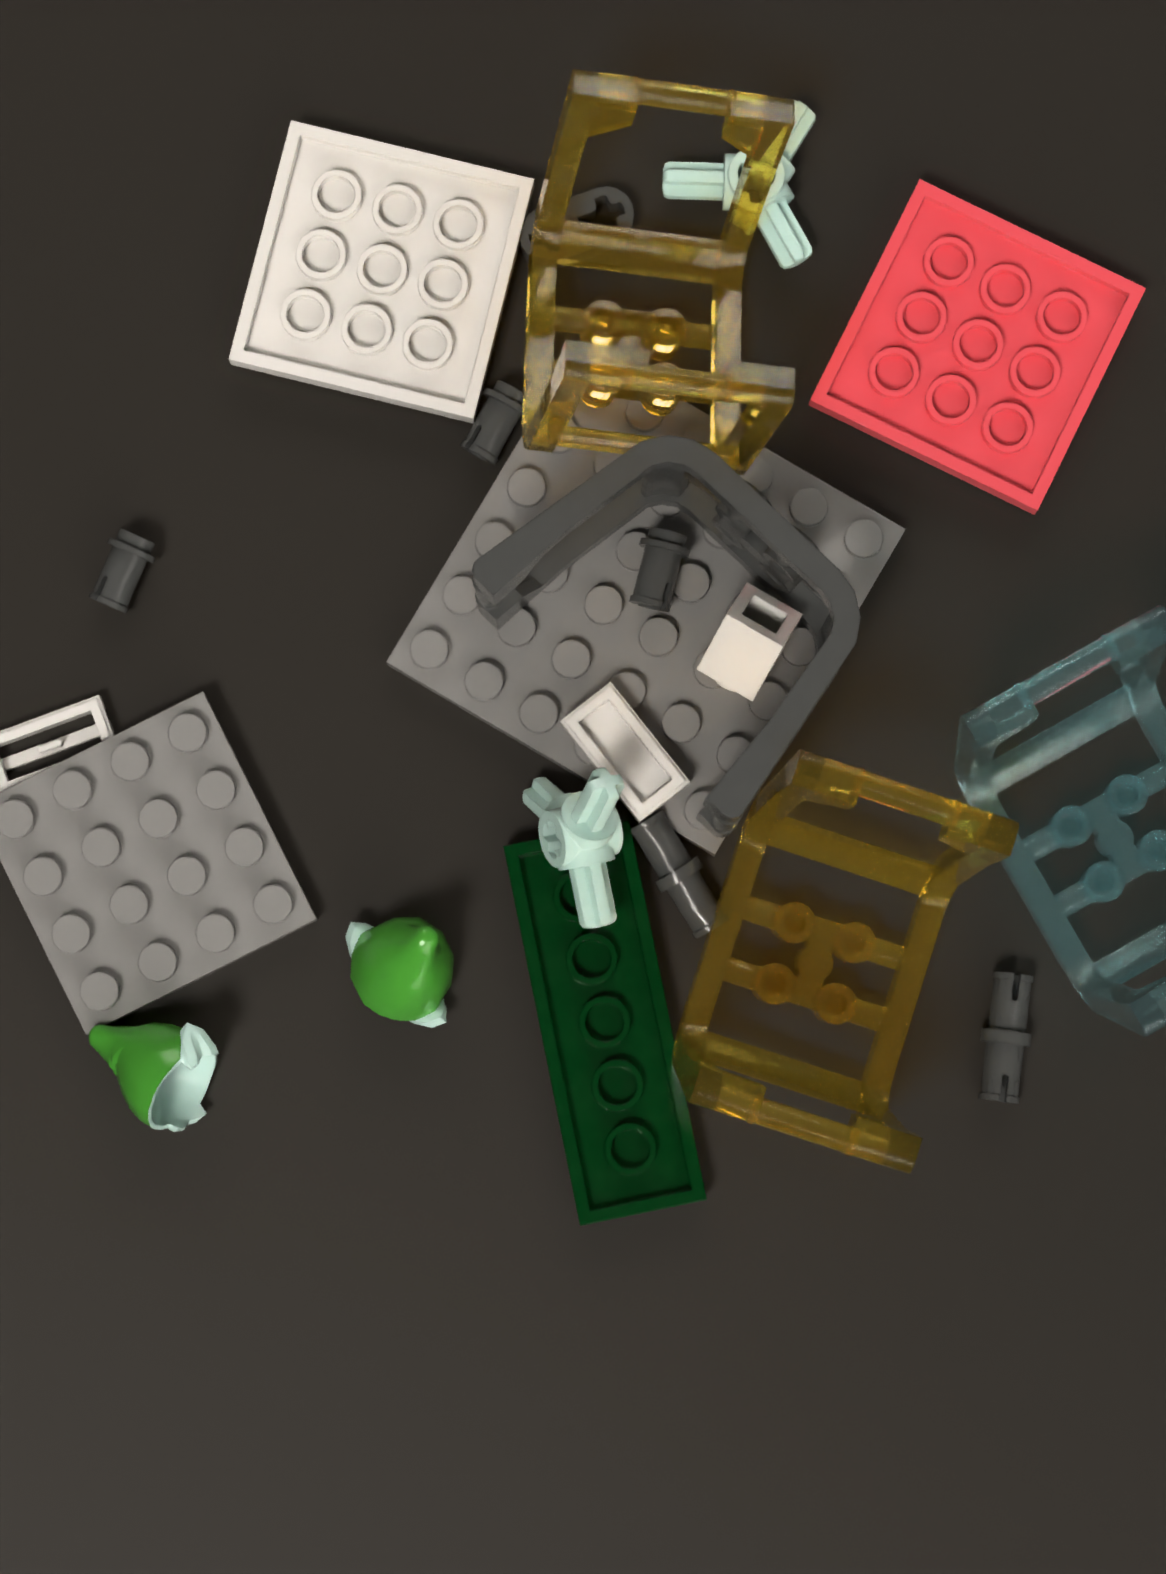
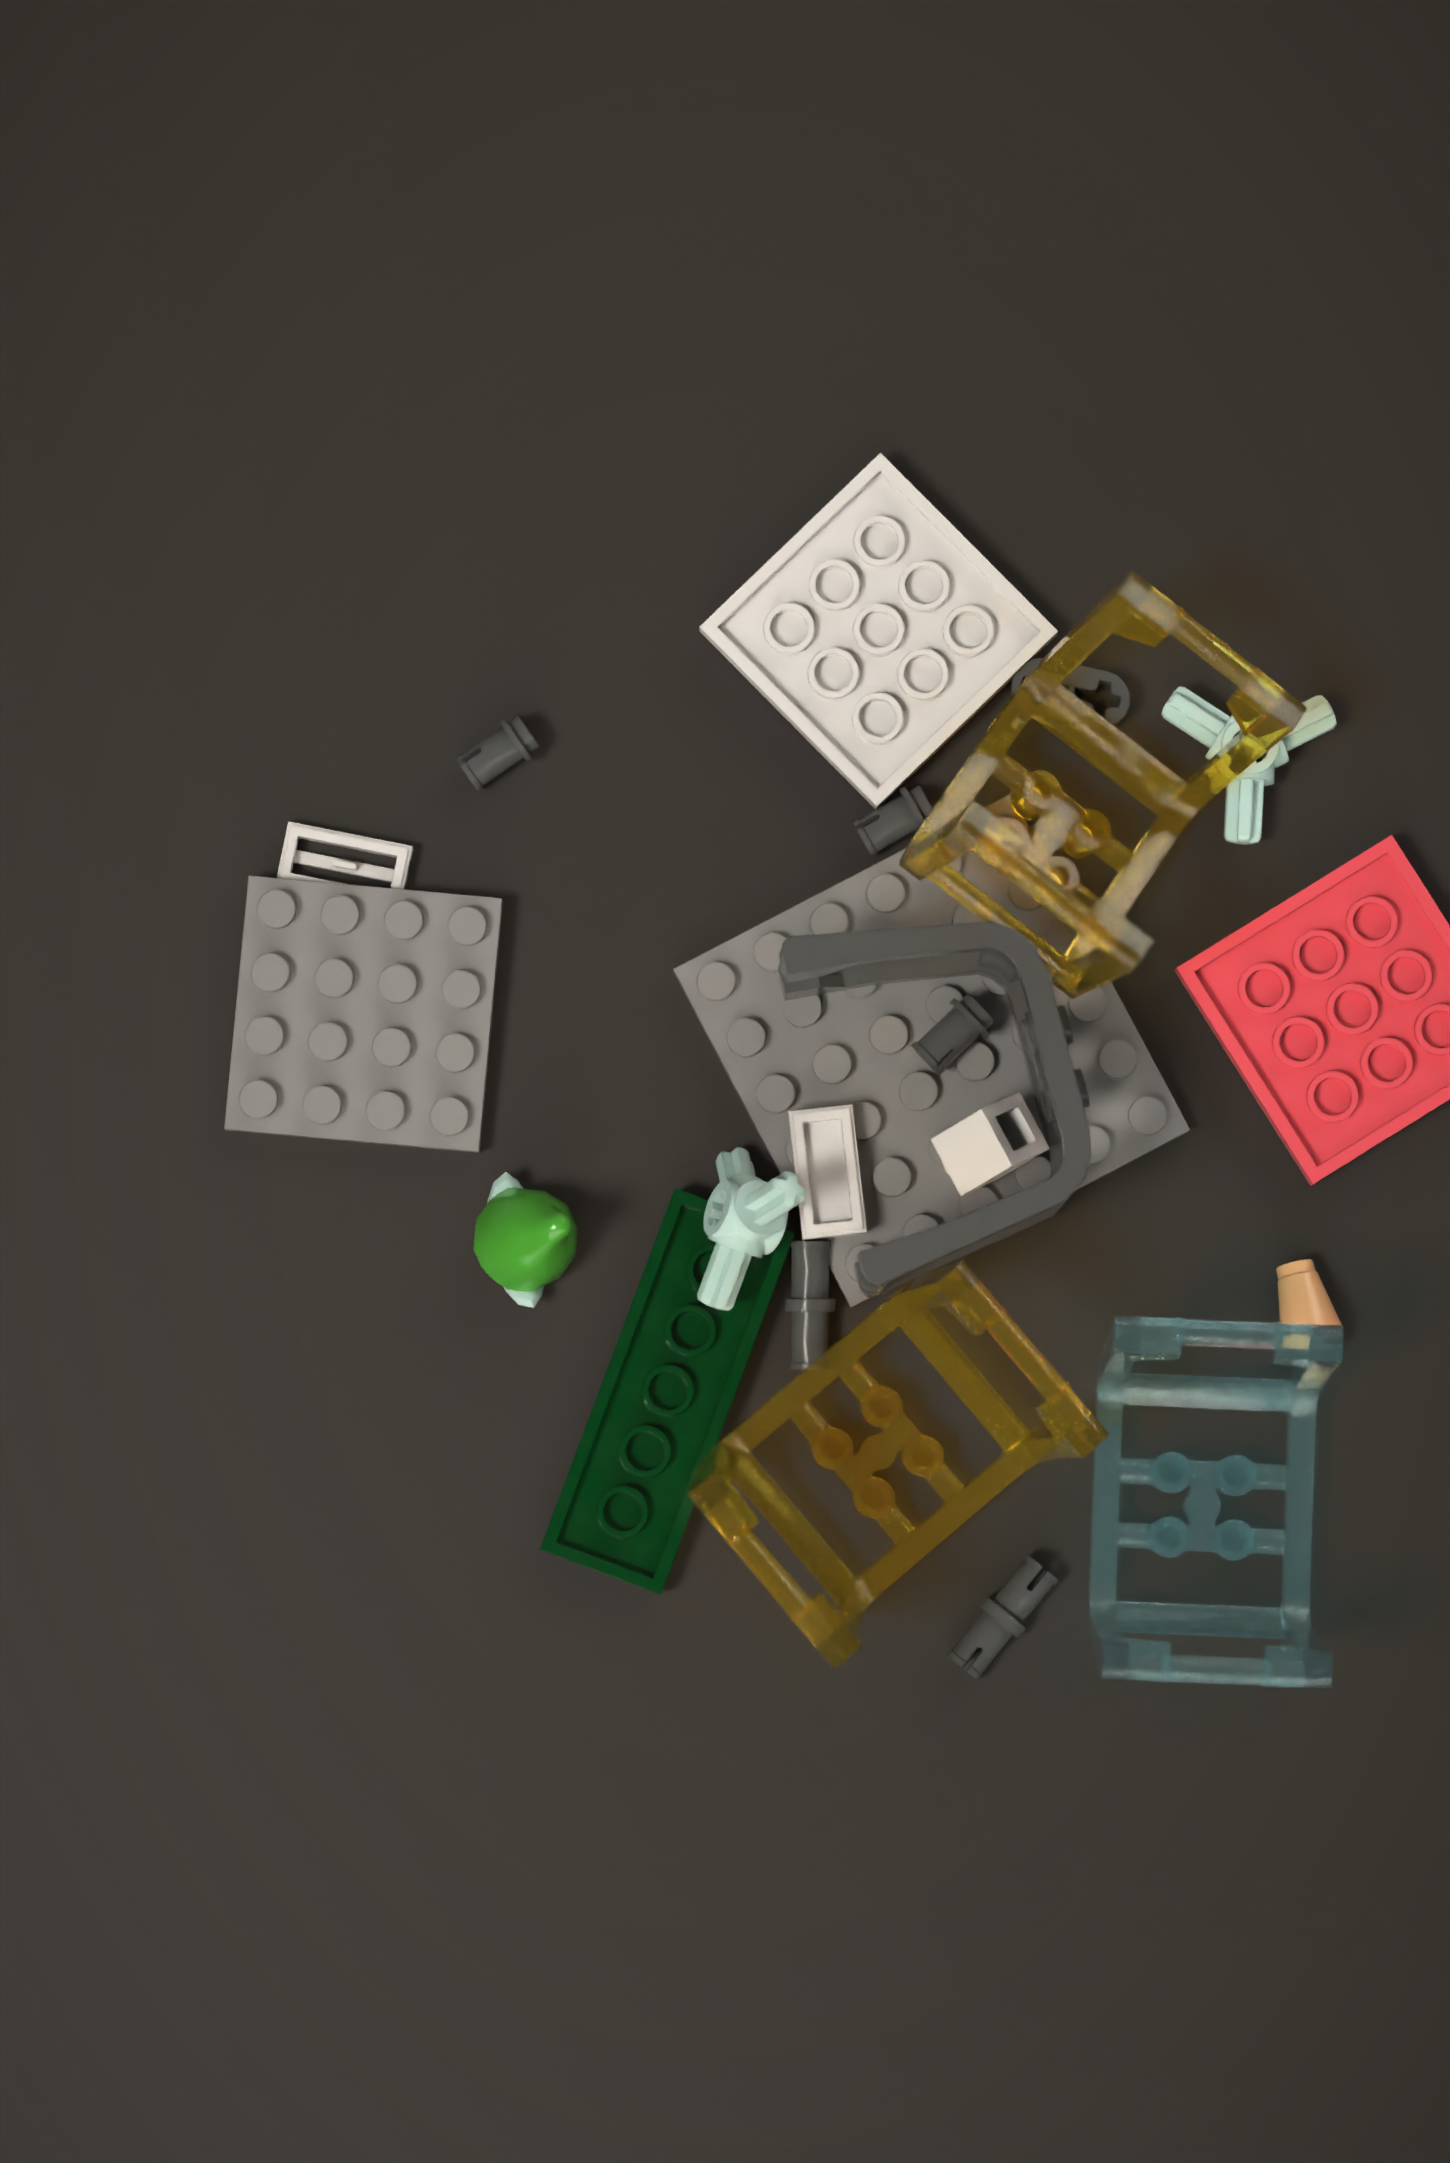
camera: 35 degrees right, 0 degrees up
(159, 1069) = (267, 1197): hat -> none
(1088, 610) = (1303, 1295): none -> light nougat cone

